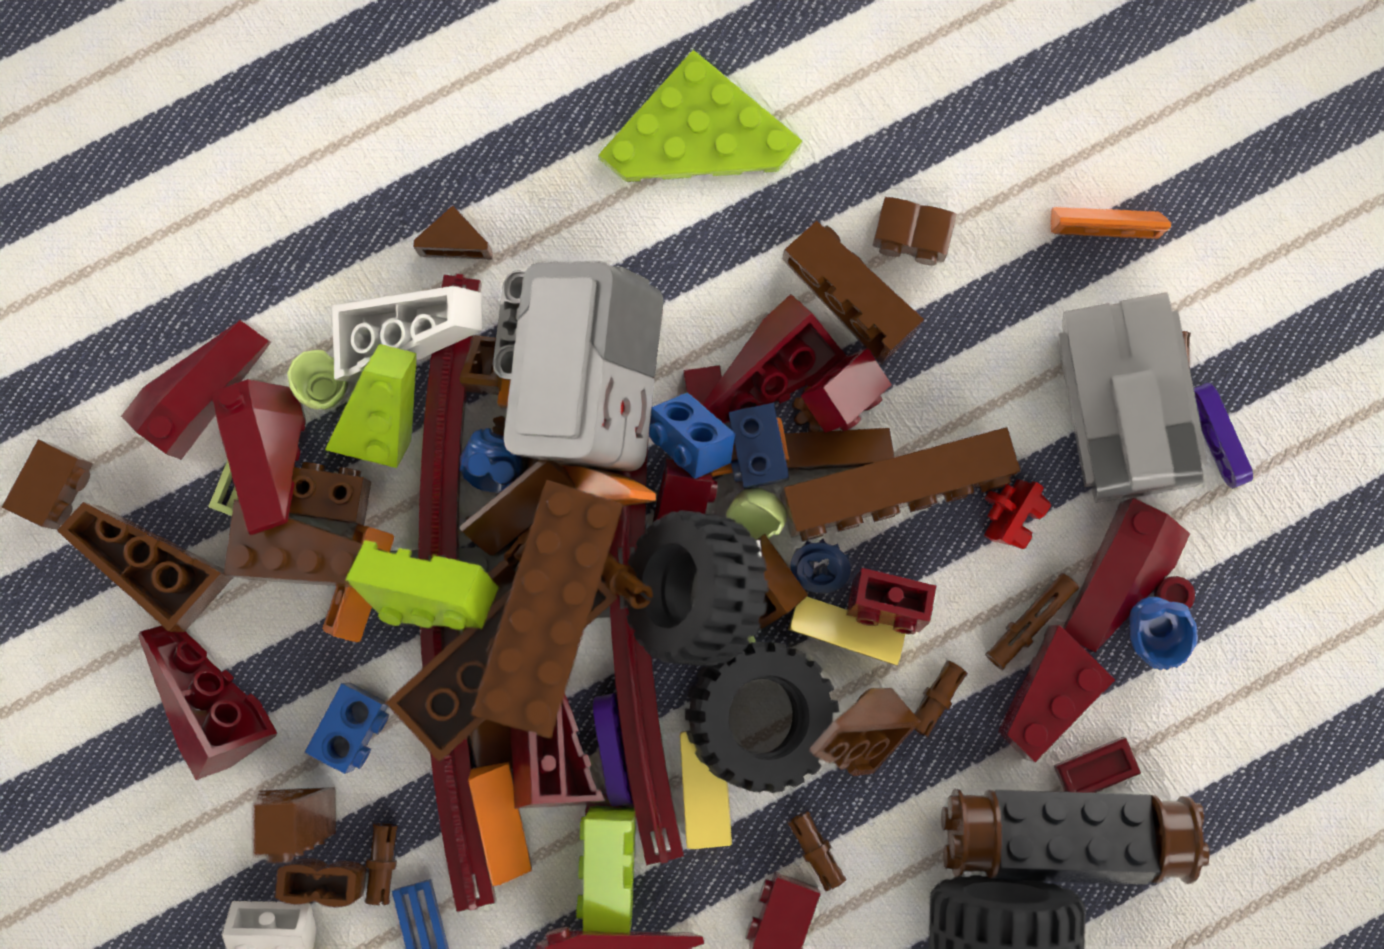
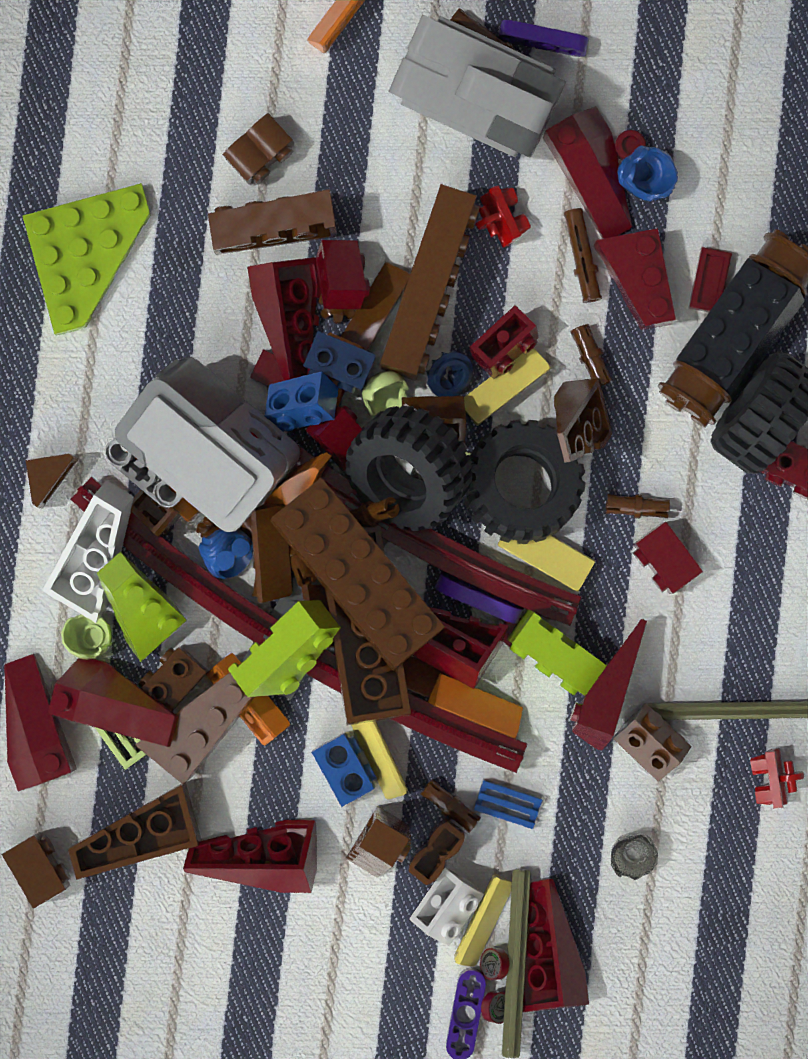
camera: 55 degrees left, 5 degrees up
(380, 764) = (380, 759): none -> light yellow slope

